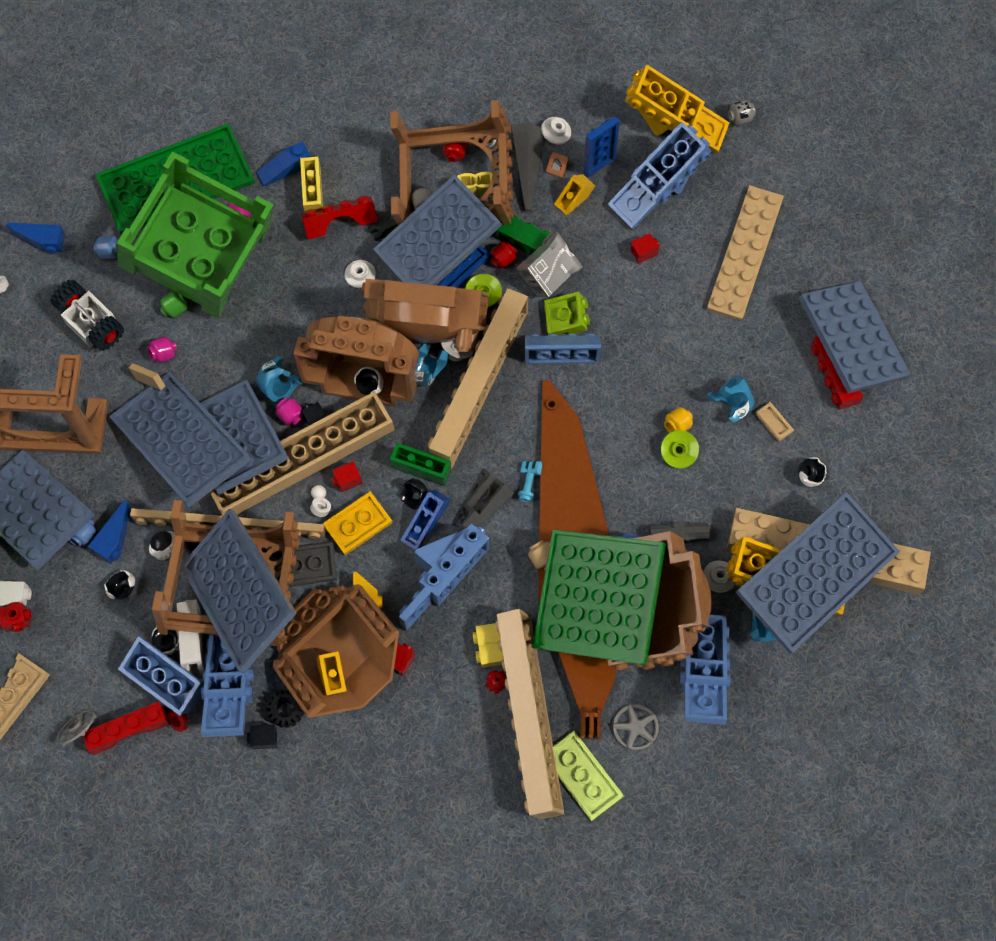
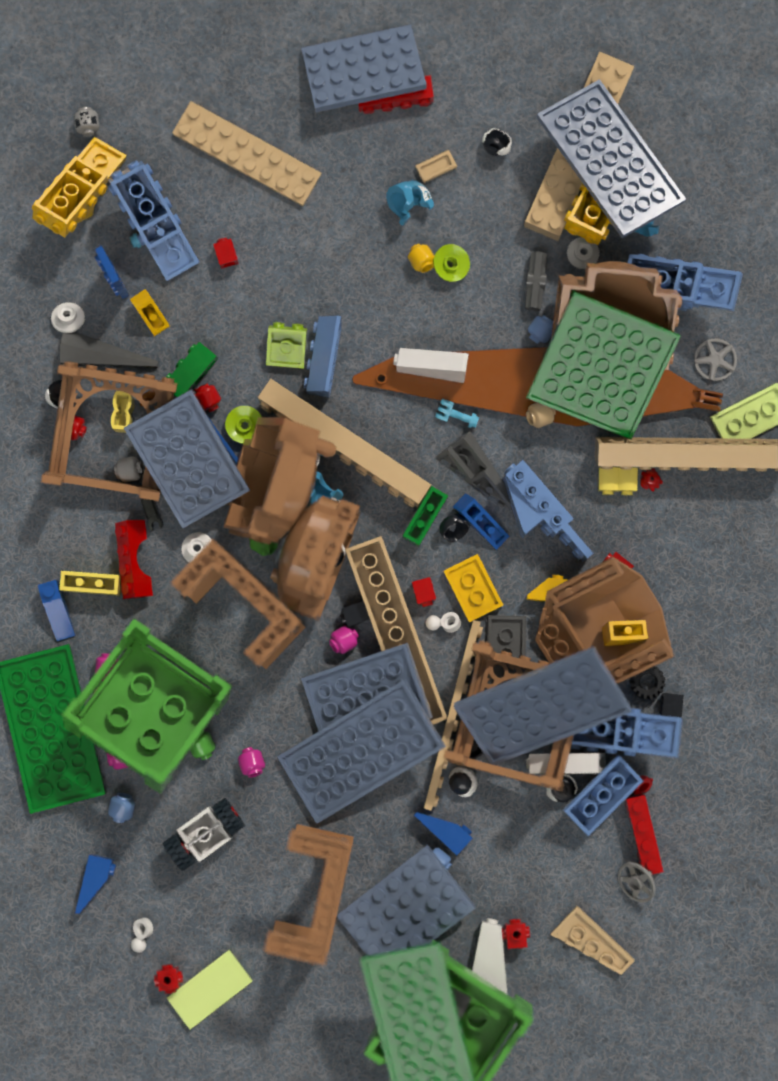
camera: 80 degrees left, 15 degrees up
(120, 585) = (499, 828): black hair -> none
(147, 376) = (282, 779): tan tile -> none
(270, 383) = (314, 653): dark azure piece -> none
(321, 276) = (212, 565): none -> medium nougat arch
(549, 265) = (233, 352): light grey piece -> none
(557, 165) = (110, 324): nougat slope -> none
(573, 446) = (432, 364): none -> white slope

